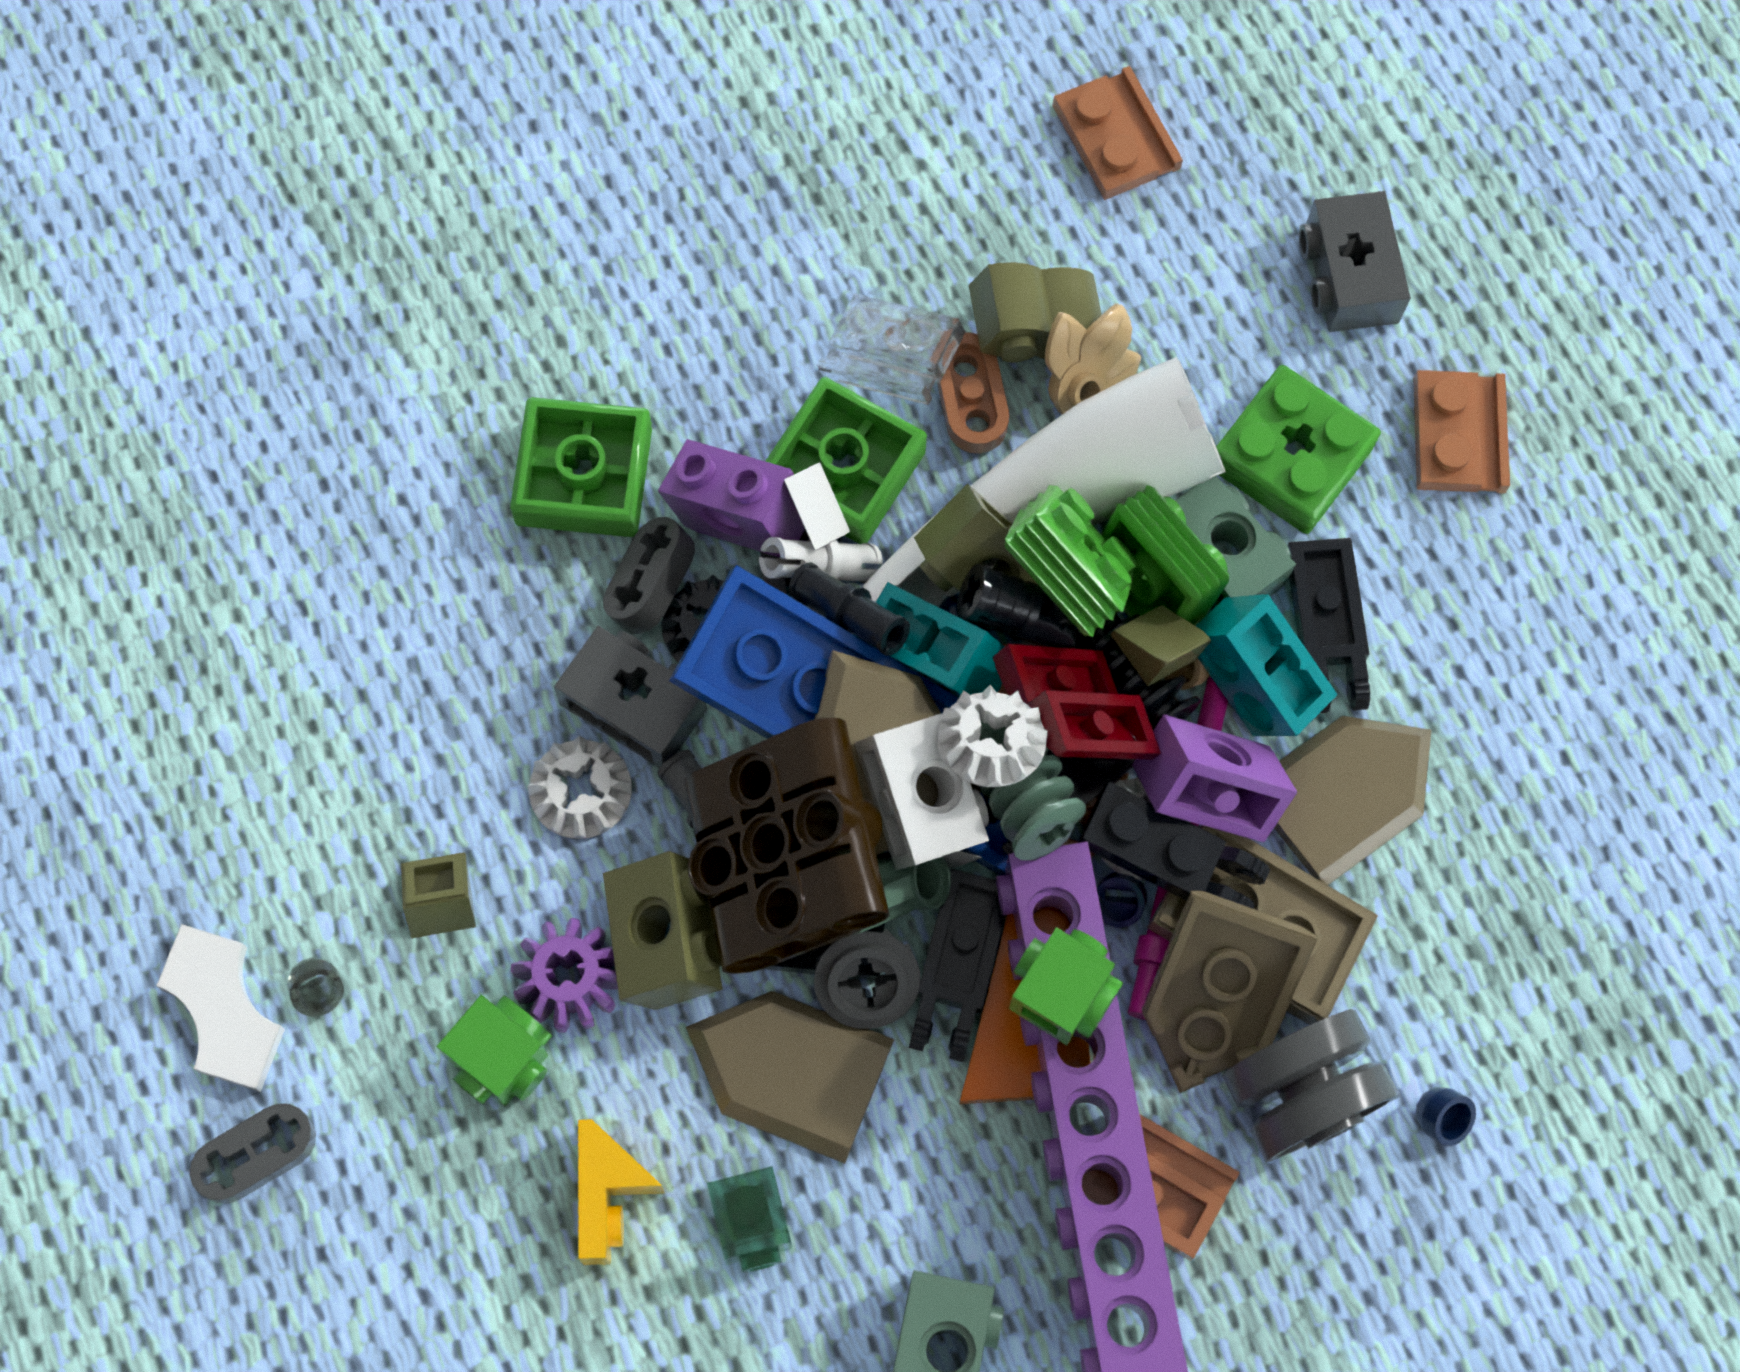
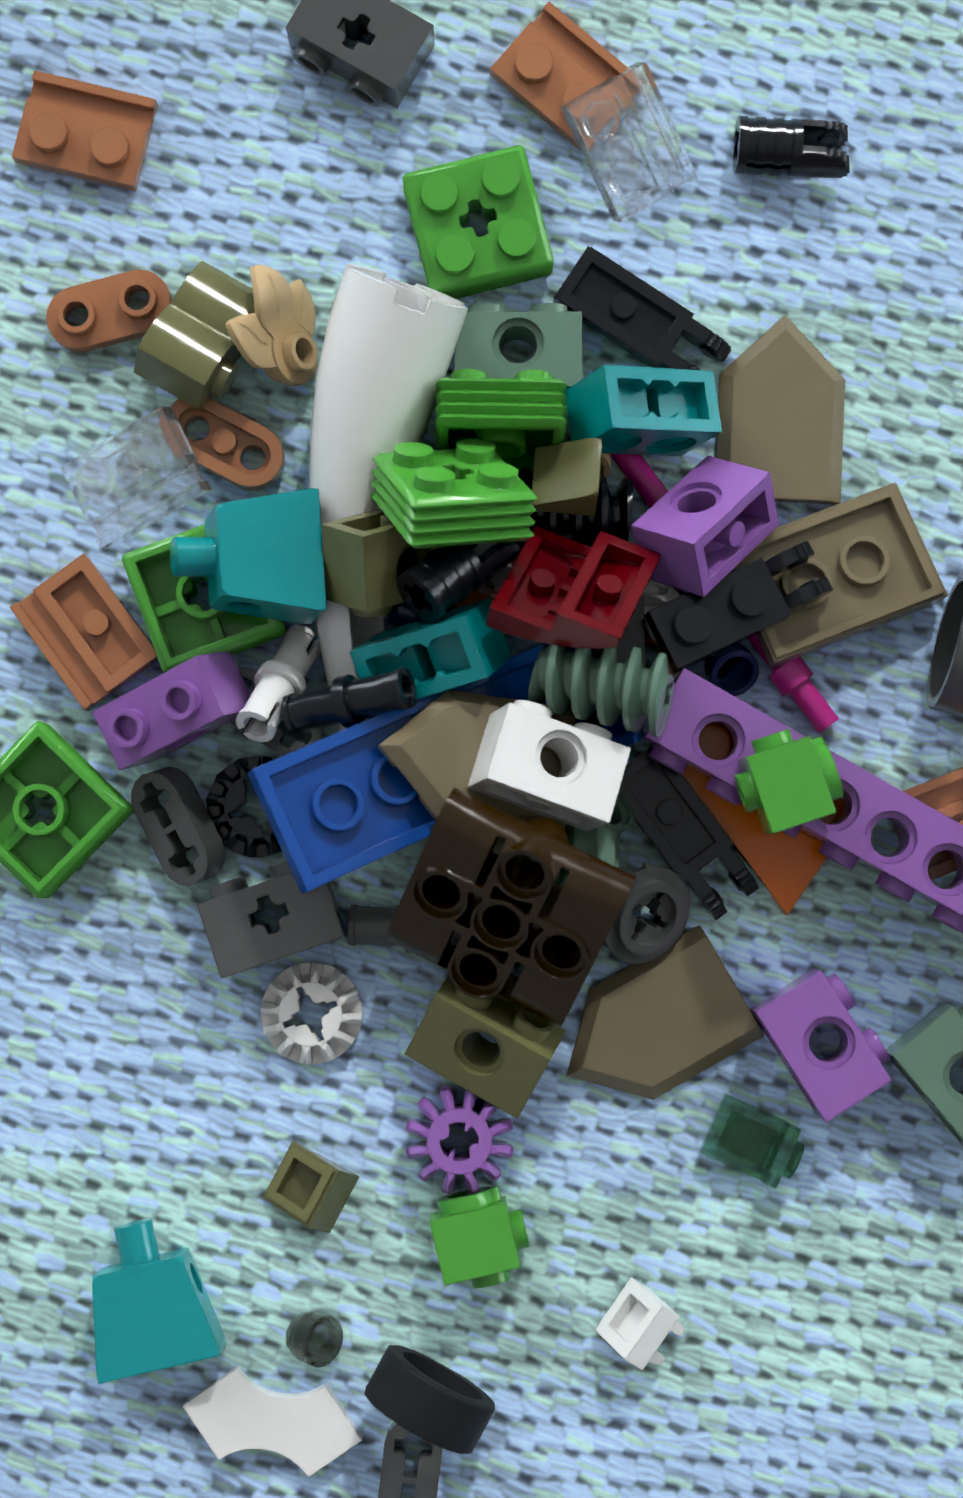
camera: 50 degrees left, 15 degrees up
(244, 836) = (150, 1309): none -> teal torso
(331, 1108) = (429, 1399): none -> black tyre
(522, 1240) = (638, 1324): none -> white tile
(602, 1173) = (634, 1225): yellow slope -> none
(745, 396) = (85, 632): none -> nougat plate
(817, 506) = (238, 655): white sticker -> none
(874, 1168) = (829, 1082): none -> medium lavender brick
(905, 463) = (260, 557): none -> teal torso
(986, 761) = (580, 708): white gear -> none
(996, 241) = (109, 316): none -> nougat plate
(1223, 986) = (865, 649): dark tan tile -> none
(1454, 506) = (629, 142): none -> clear plate
(1560, 631) = (790, 147): none -> black hinge

